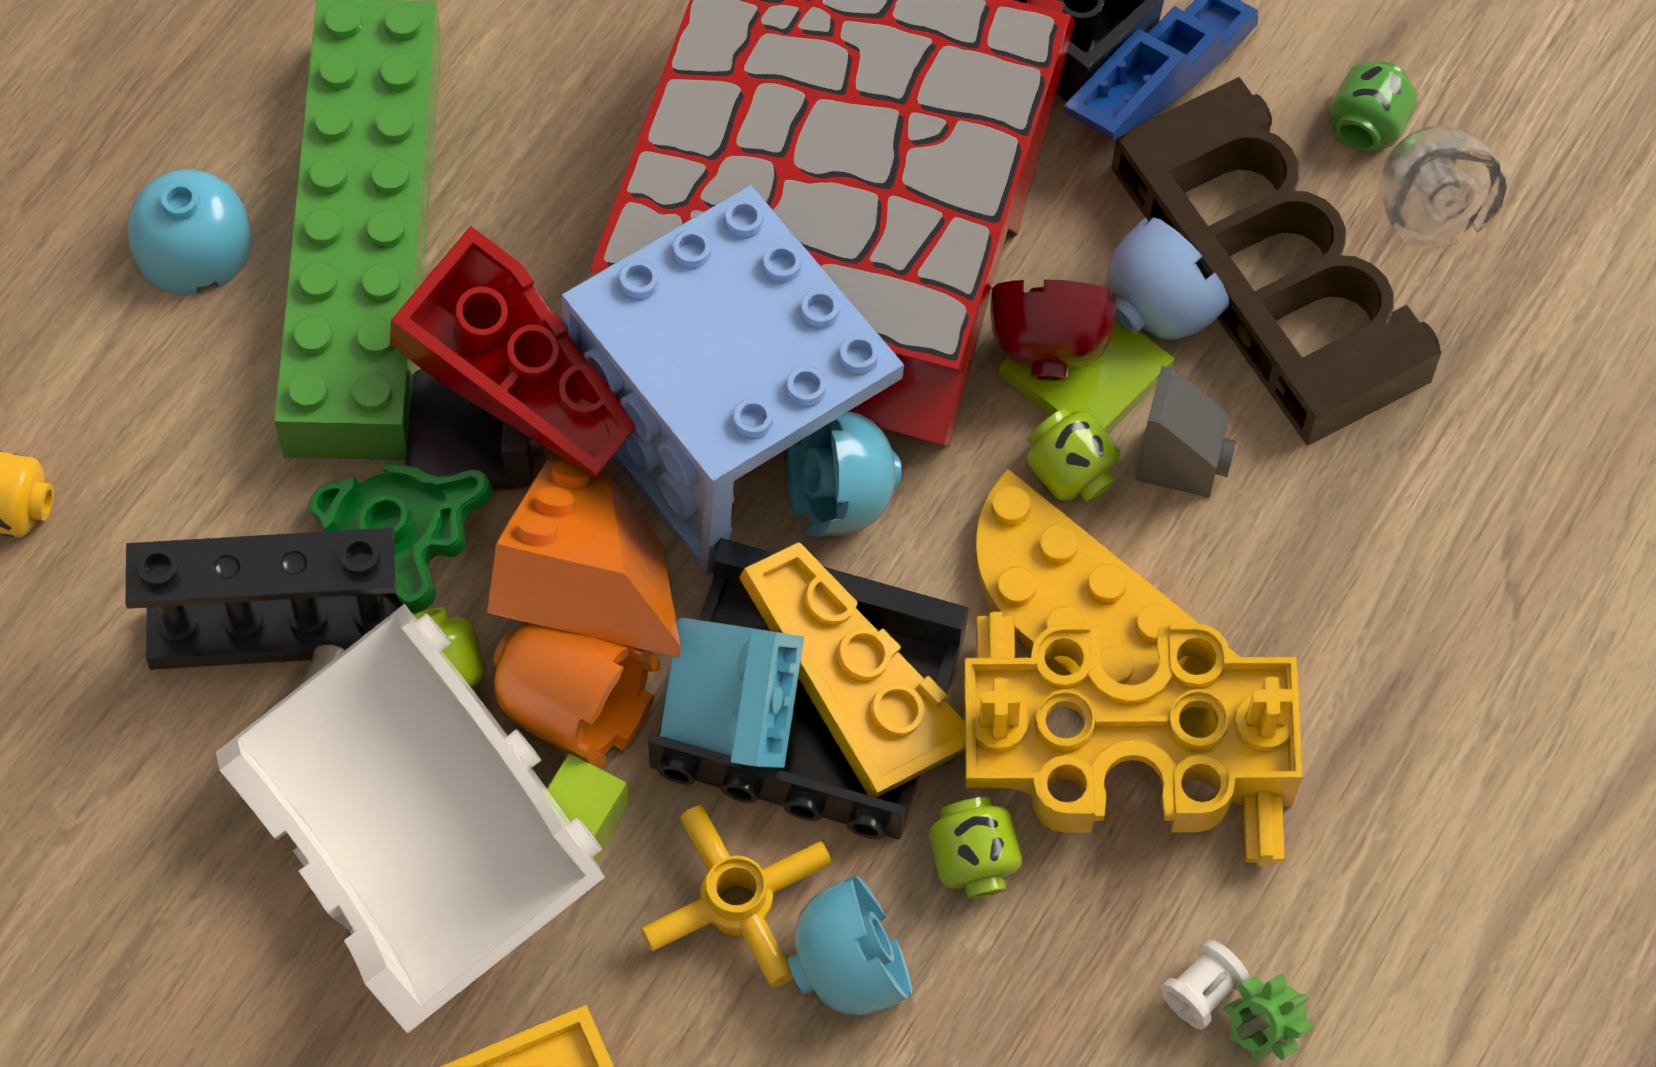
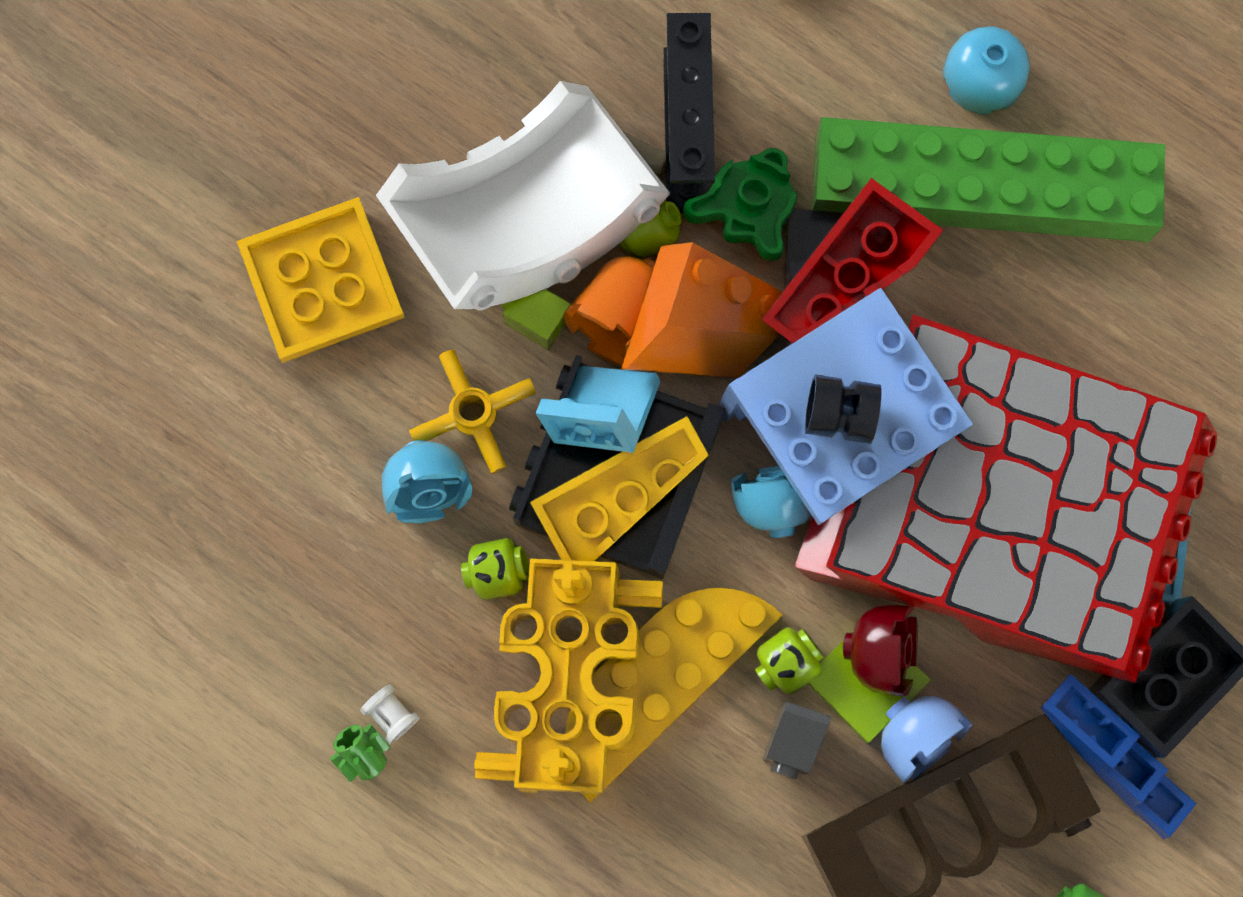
camera: 90 degrees right, 15 degrees up
(749, 322) = (826, 407): none -> black wheel

